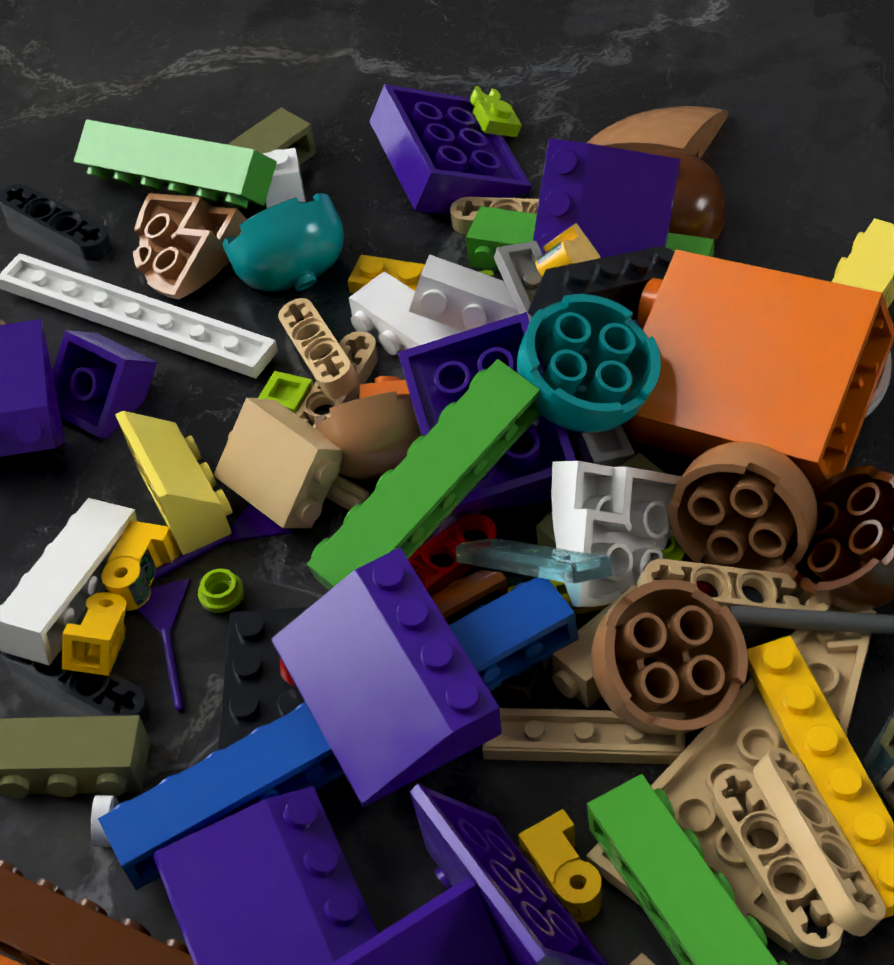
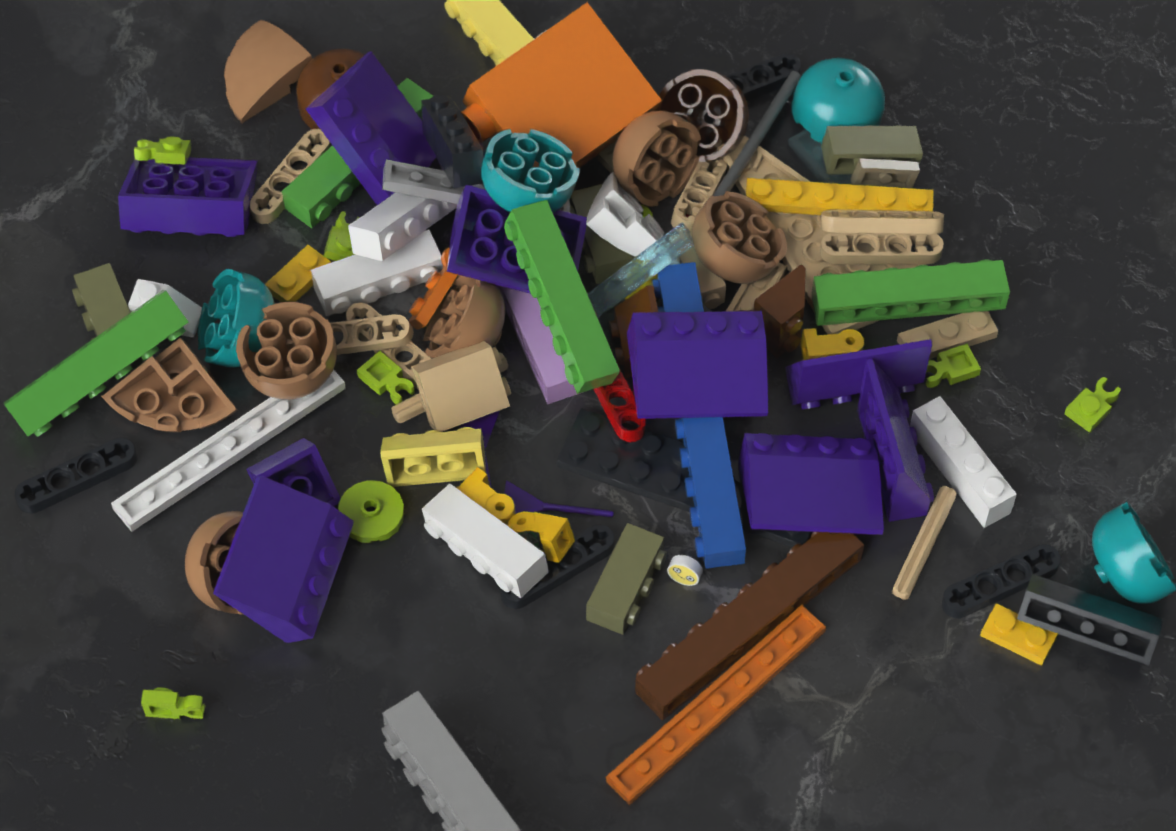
camera: 75 degrees left, 10 degrees up
(92, 467) = (377, 524): none -> lime plate
(216, 582) = (533, 454): lime plate -> none
(238, 293) = (294, 354): none -> medium nougat cylinder
(566, 249) = (411, 150): yellow leg -> none
(572, 764) = (783, 312): none -> reddish brown slope

